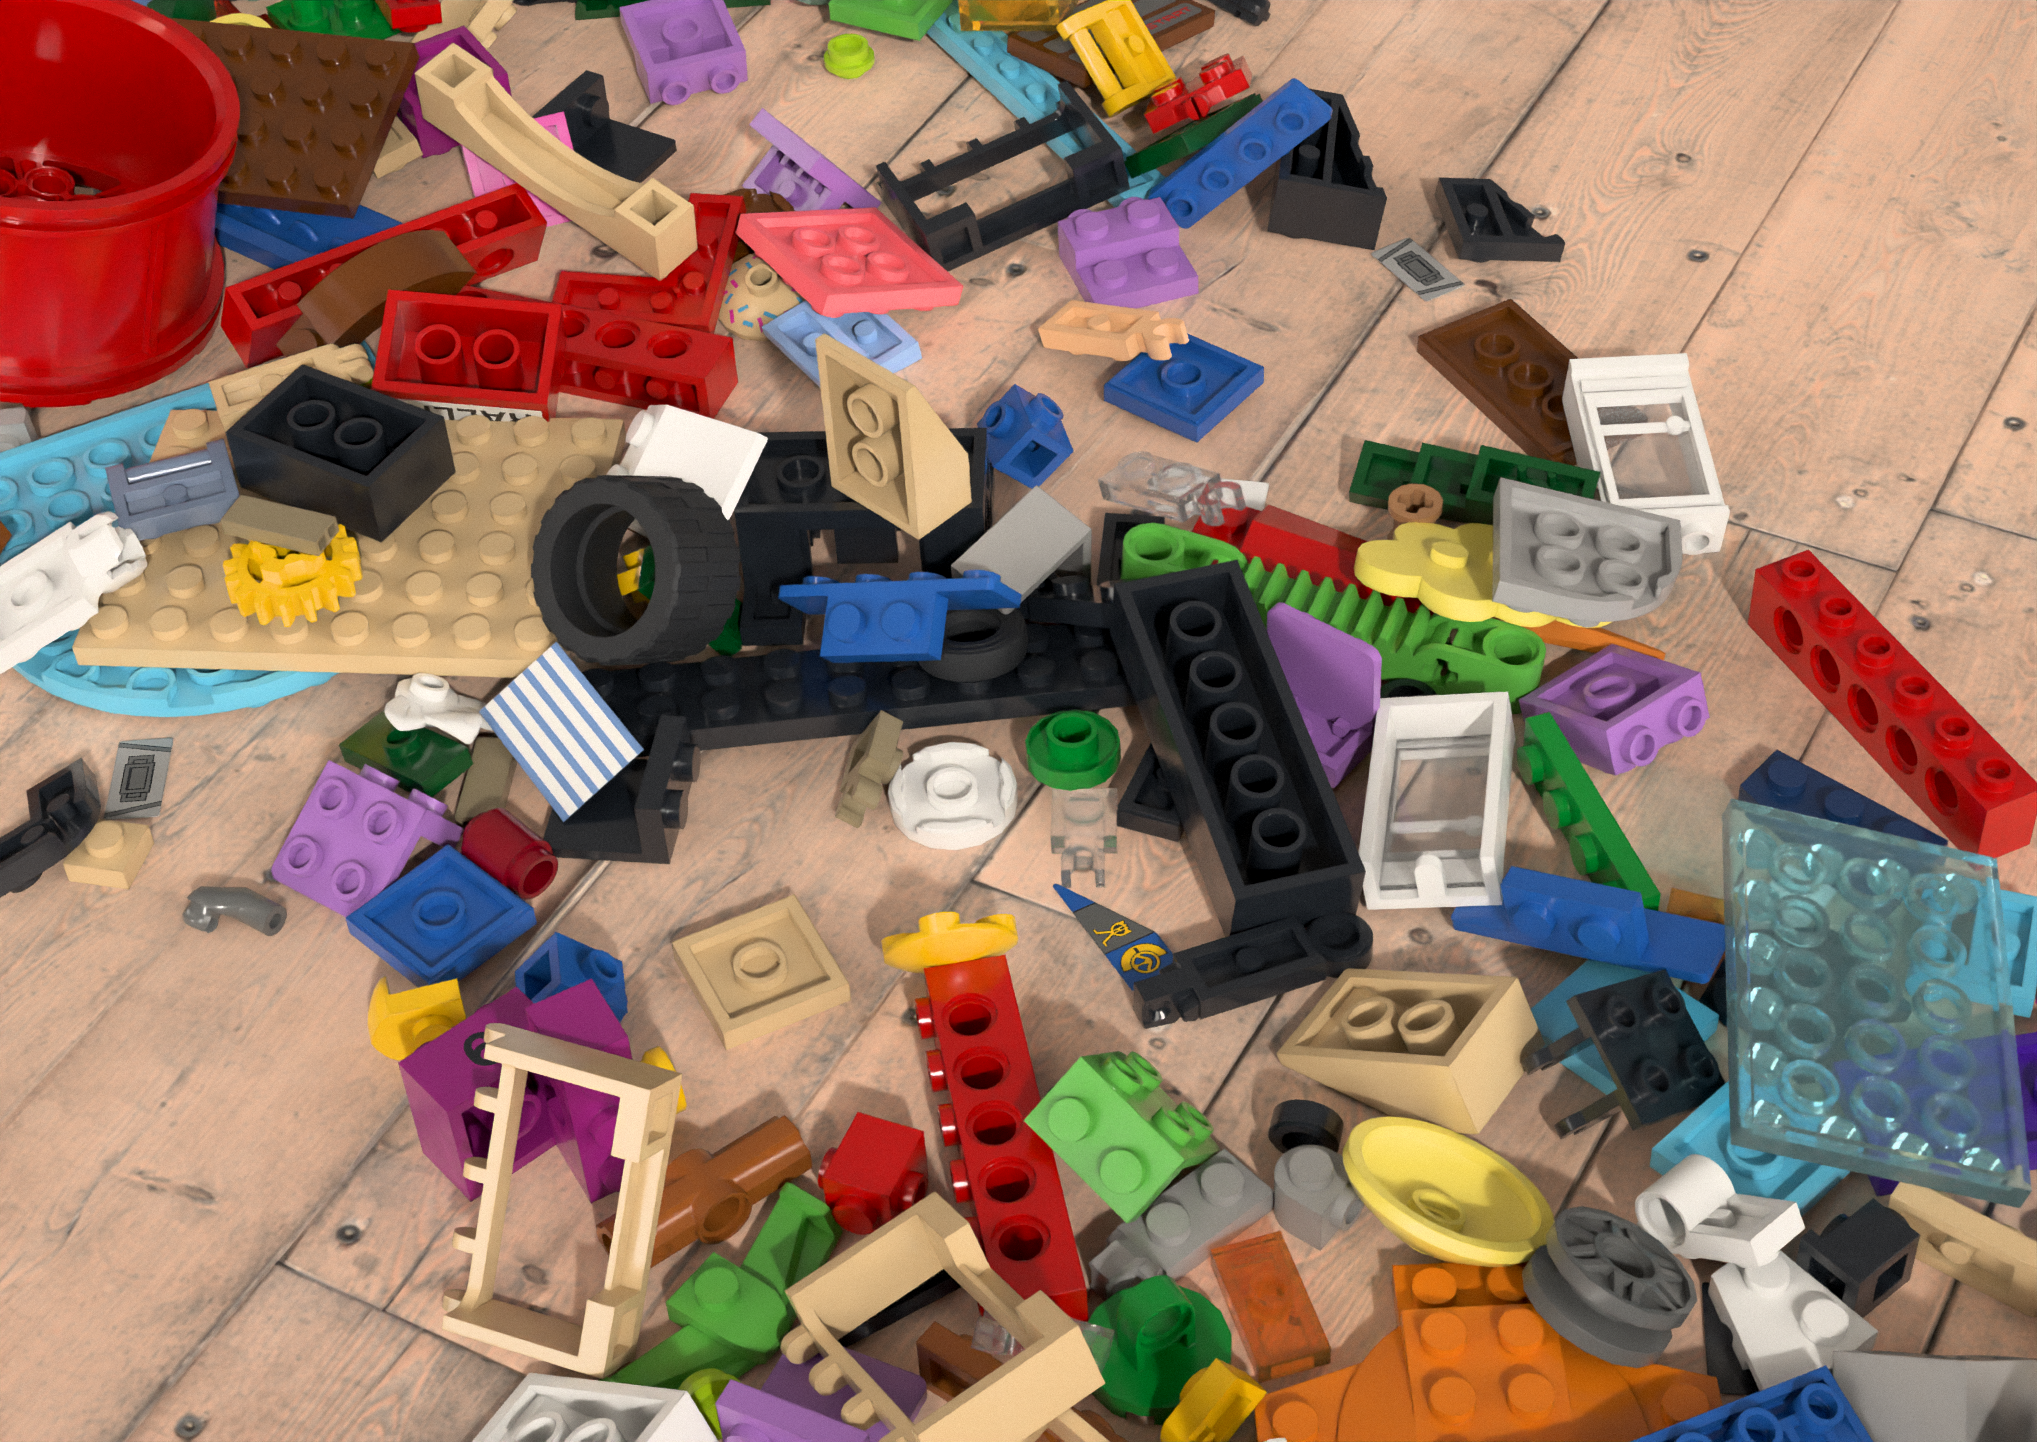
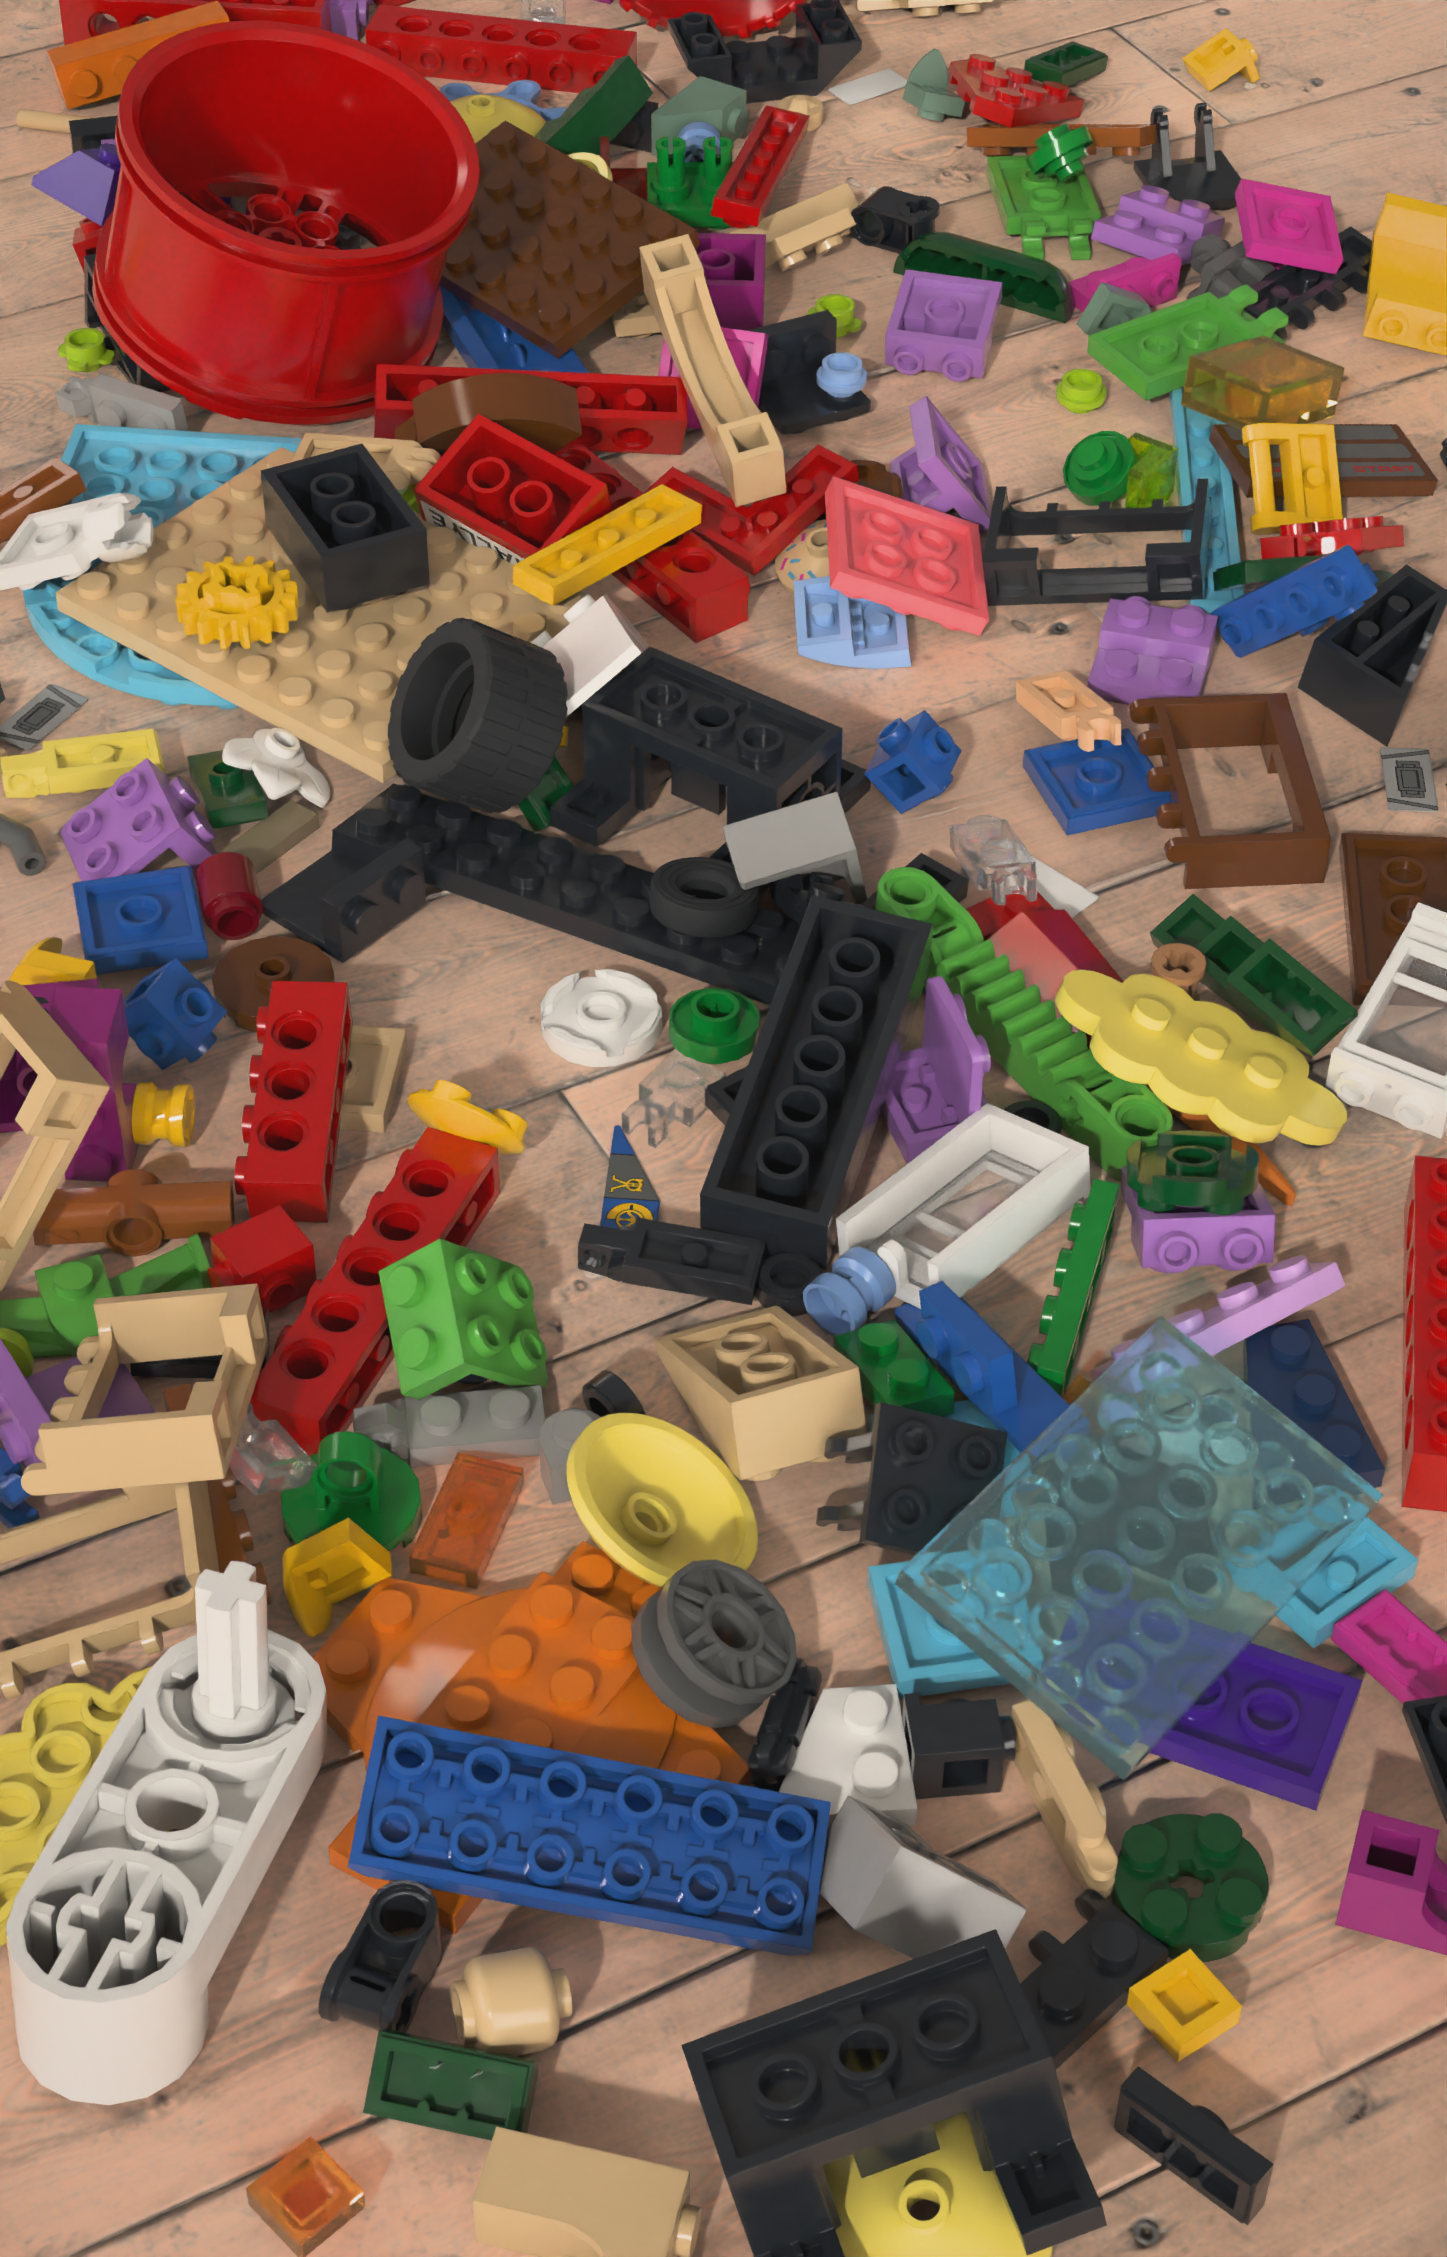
camera: 30 degrees right, 0 degrees up
(174, 492) = (208, 507): sand blue plate -> none
(241, 800) = (78, 763): none -> light yellow hinge
(280, 525) = (241, 559): dark tan piece -> none
(557, 706) = (339, 820): sticker -> none
(561, 73) = (842, 309): none -> lime plate
(592, 364) = (606, 544): none -> yellow plate
(627, 911) = (247, 972): none -> reddish brown plate
(635, 125) = (841, 374): none -> light blue plate
(735, 924) = (296, 1101): none -> red brick
(871, 762) = (553, 959): dark tan plate -> none
(888, 443) = (716, 699): tan slope -> none
(893, 618) = (646, 846): blue bracket -> none
(936, 114) = (1099, 467): none -> green plate
(976, 95) = (1153, 474): none -> clear neon green bracket
(1304, 283) = (1233, 722): none -> reddish brown hinge
(1405, 912) = (856, 1286): none -> medium blue wheel
(1544, 974) = (895, 1369): none -> green plate
(1580, 555) = (1260, 1068): light grey plate -> none
(1602, 672) = (1192, 1172): none -> dark green plate
(1702, 1217) = (853, 1642): white plate -> none
(1717, 1333) = (784, 1724): none -> black axle
(1726, 770) = (1251, 1308): none -> lavender plate

